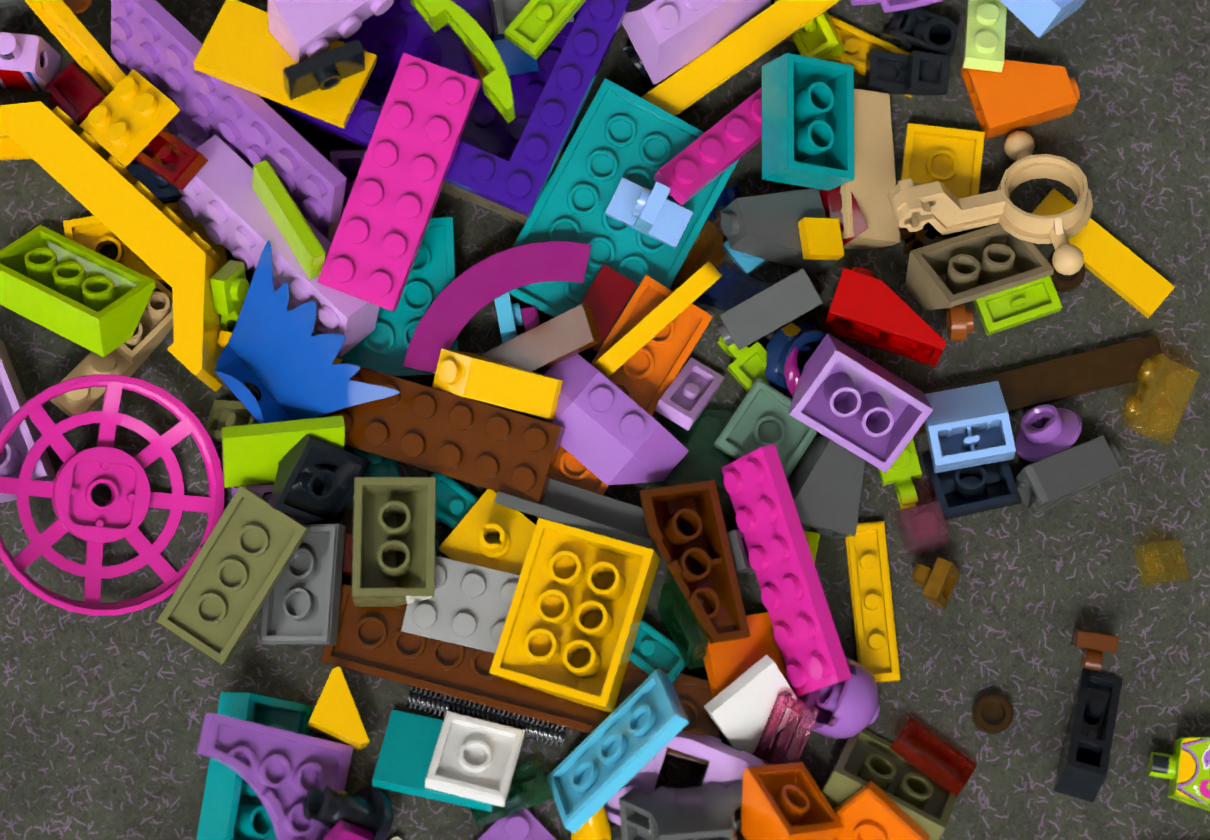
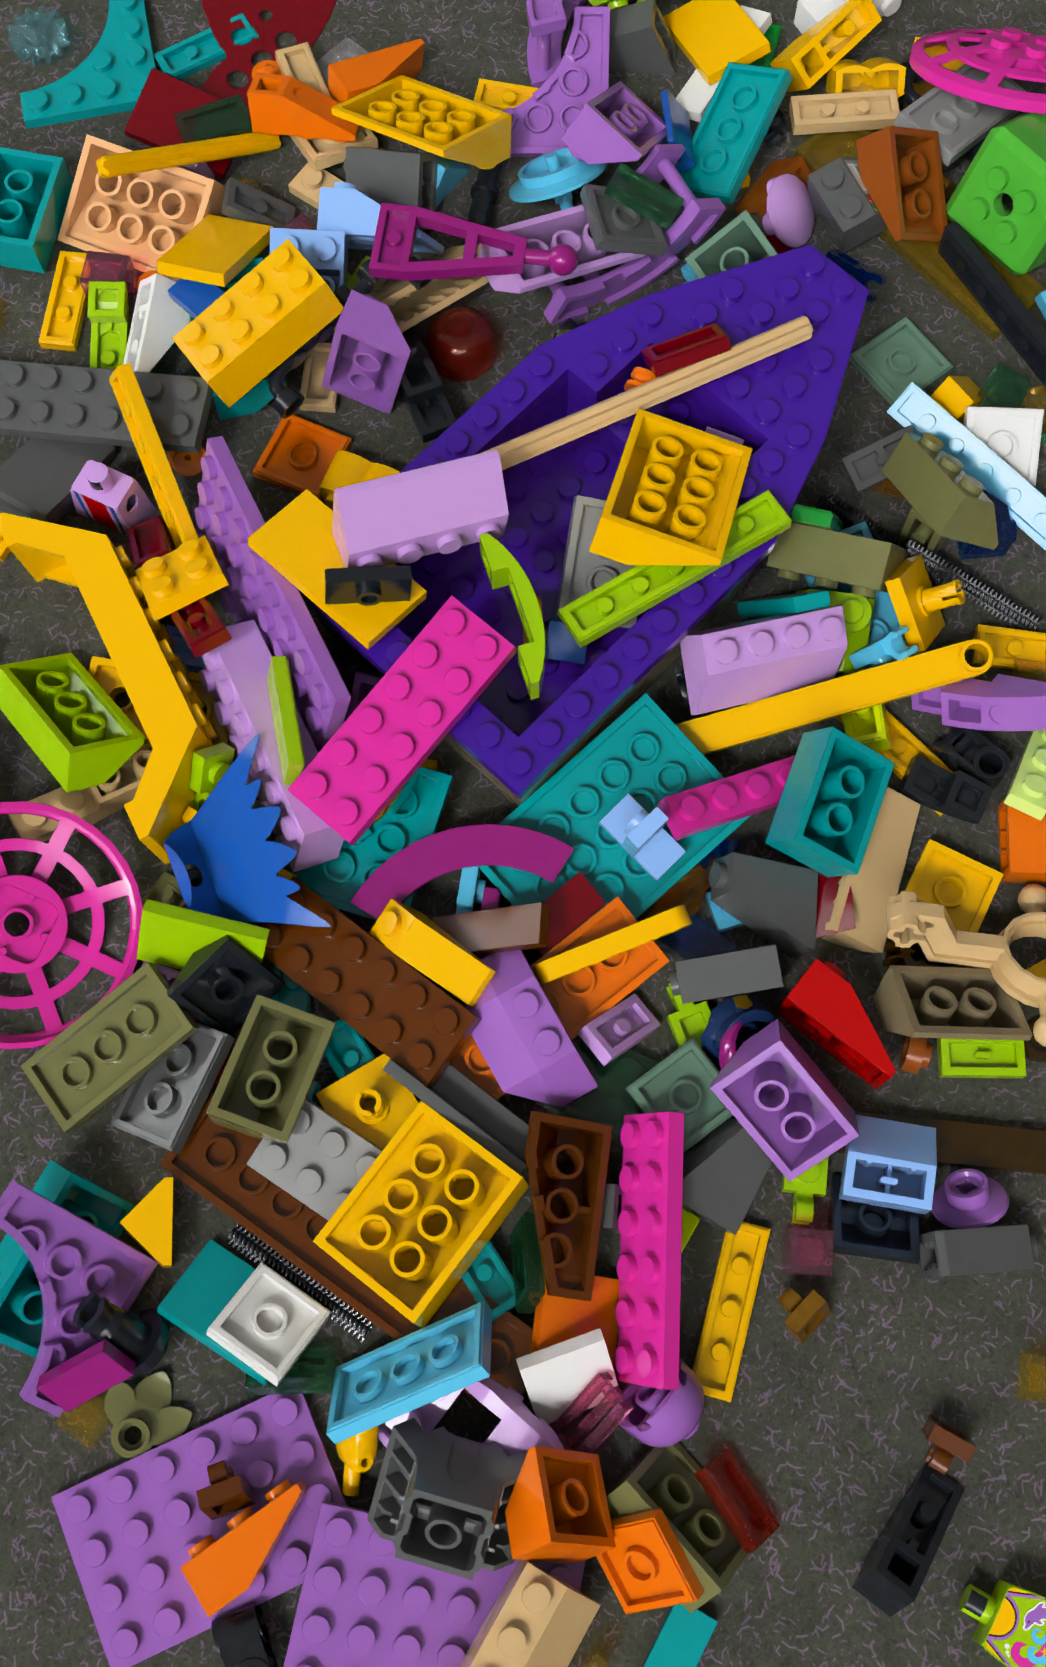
camera: 20 degrees right, 5 degrees down
(821, 238) = (804, 921): yellow tile -> none
(992, 713) = (814, 1475): dark brown tile -> none

